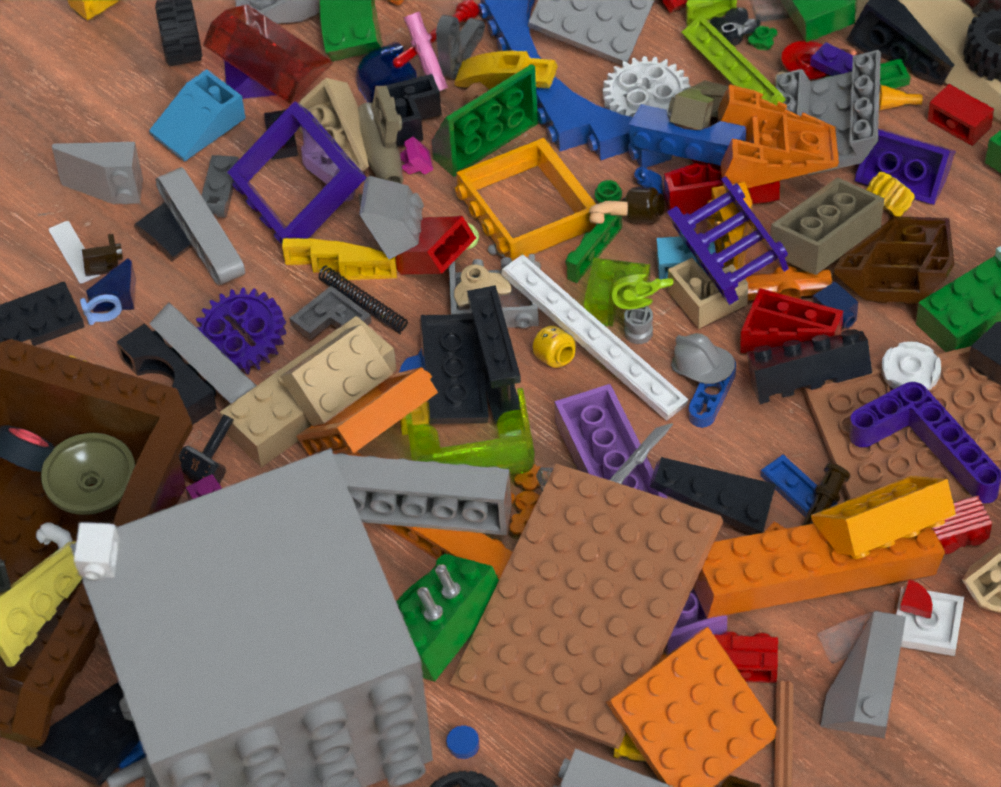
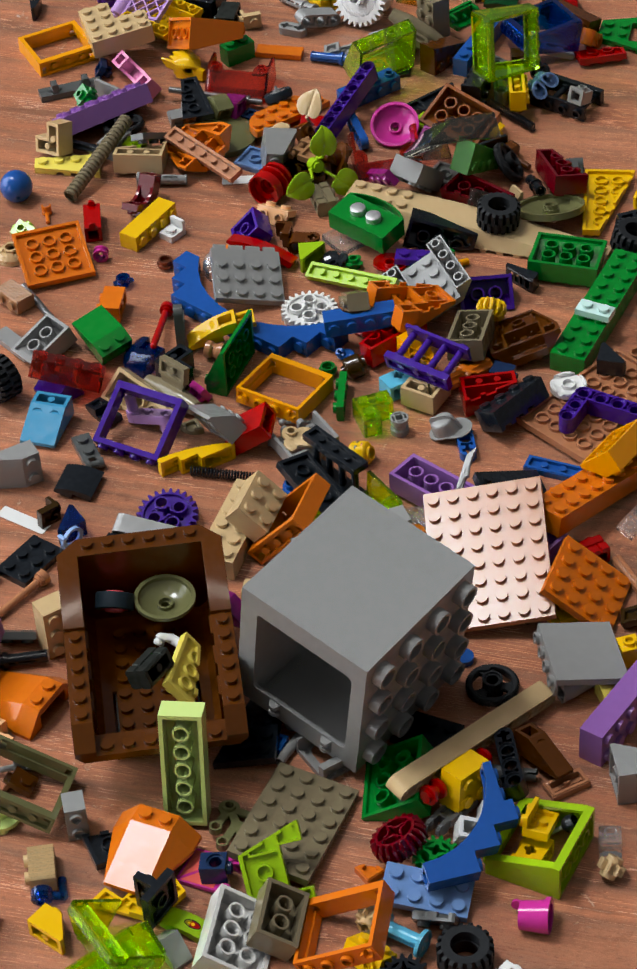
camera: 30 degrees left, 10 degrees down
(96, 550) = (264, 579): white brick -> none
(200, 226) = (99, 472): light grey beam -> none
(324, 310) = (211, 486): flat silver plate -> none
(424, 48) = (162, 330): bright pink pin -> none
(595, 337) = (381, 438): white tile -> none
(607, 208) = (340, 371): light nougat arm -> none
(631, 290) = (388, 404): lime piece -> none
(828, 491) = (570, 458): dark brown pin -> none
(960, 114) = (495, 258): red brick -> none
(977, 160) = (526, 278): none -> black slope

